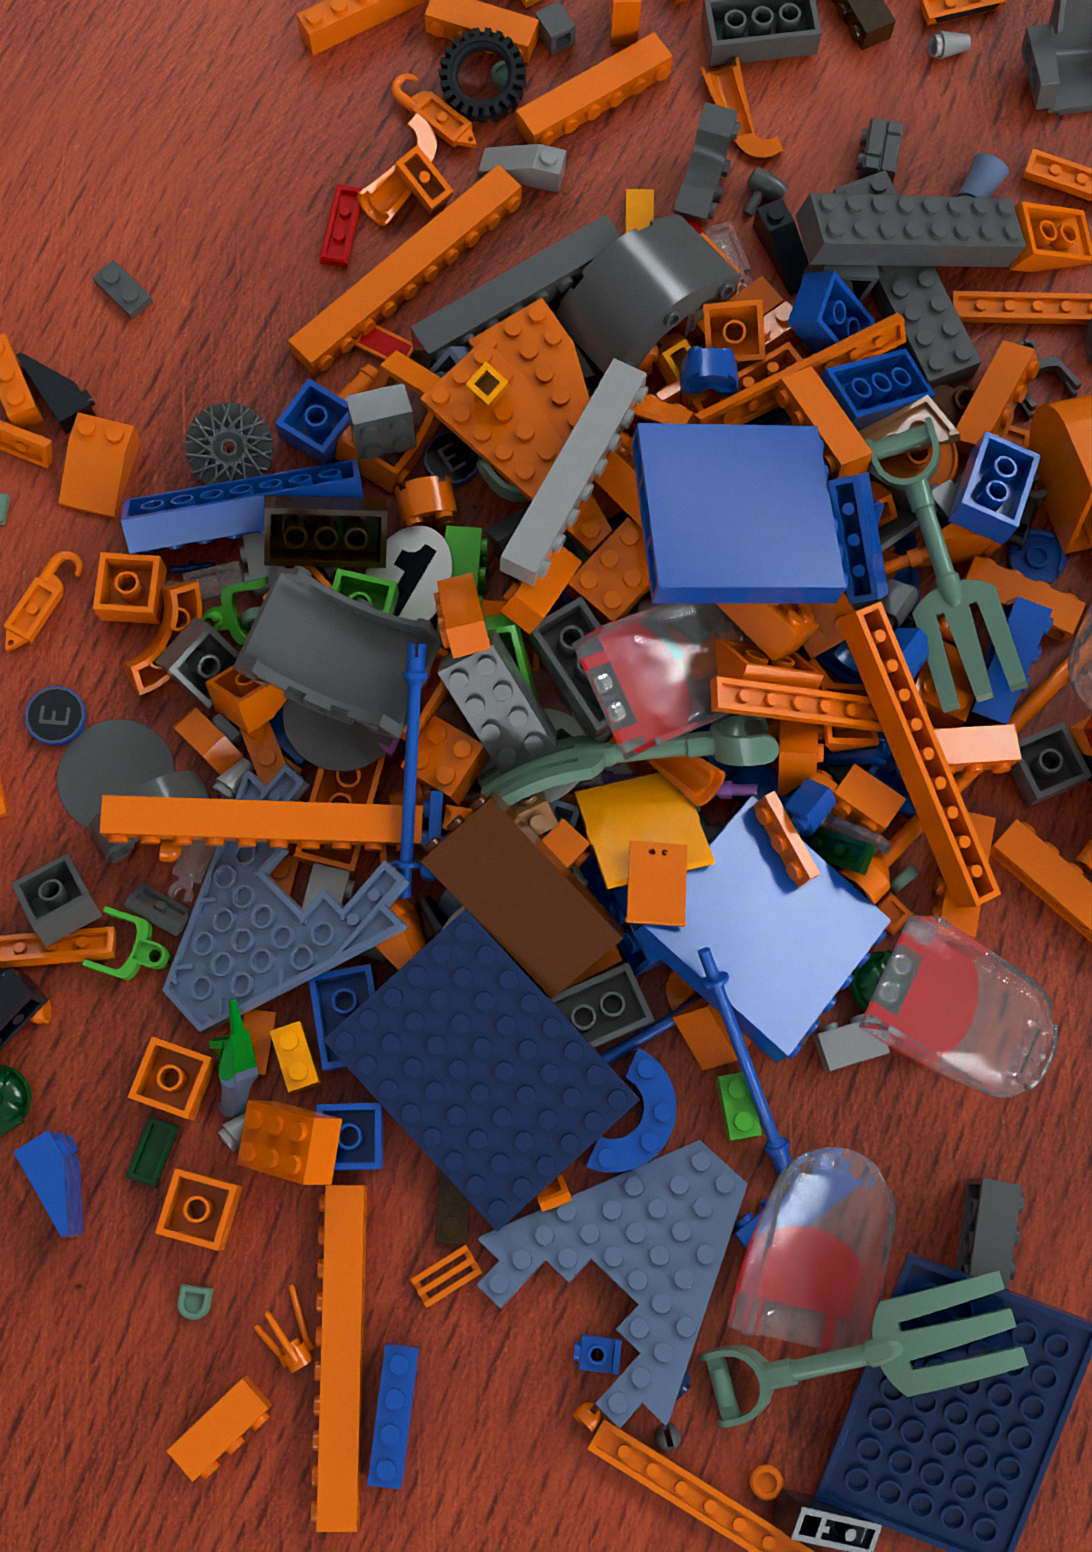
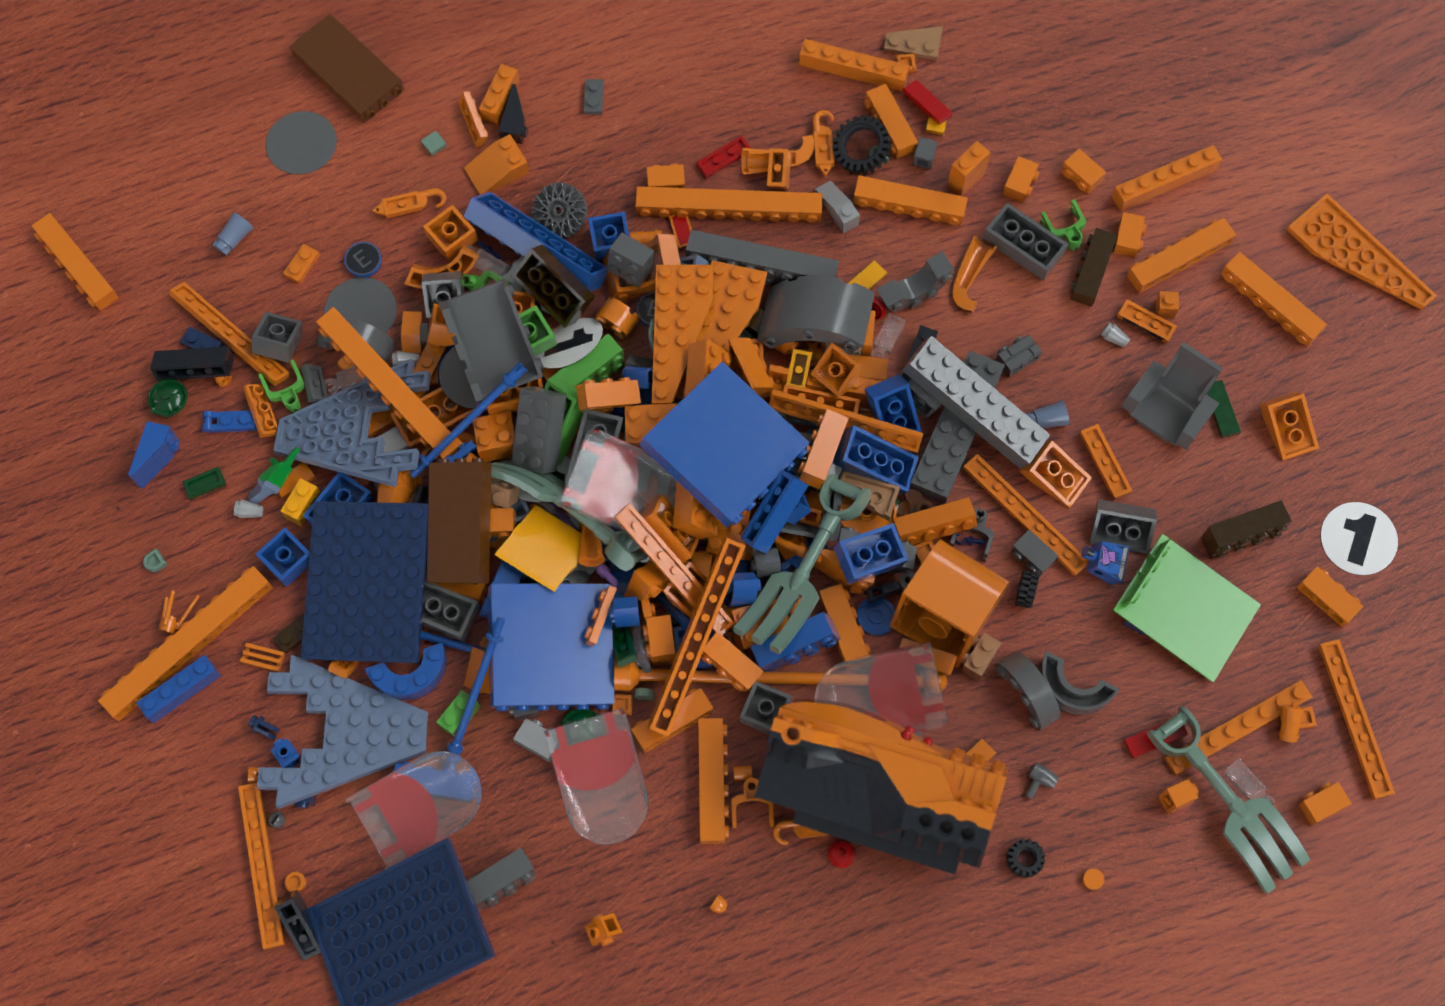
camera: 50 degrees right, 5 degrees down
(103, 1051) = (228, 421): none -> blue plate
(128, 1001) = (261, 410): none -> orange tile
(172, 1078) = (242, 459): orange brick -> none
(199, 1209) = (194, 524): orange brick -> none
(220, 1429) = (108, 622): orange brick -> none
(289, 1142) = (256, 530): orange brick -> none
(306, 301) = (666, 176): none -> orange brick
(461, 616) = (560, 374): orange brick -> none
(488, 384) = (684, 285): light orange brick -> none
(540, 1351) = (257, 723): none -> dark blue arm
(573, 473) = (671, 356): light grey brick -> none
(656, 884) = (517, 573): orange container -> none
(709, 370) = (805, 378): blue cylinder -> none
(764, 185) = (943, 319): dark grey piece -> none
(888, 1348) = (395, 869): sand green piece -> none
(1040, 387) = (970, 540): none -> clear blue hand

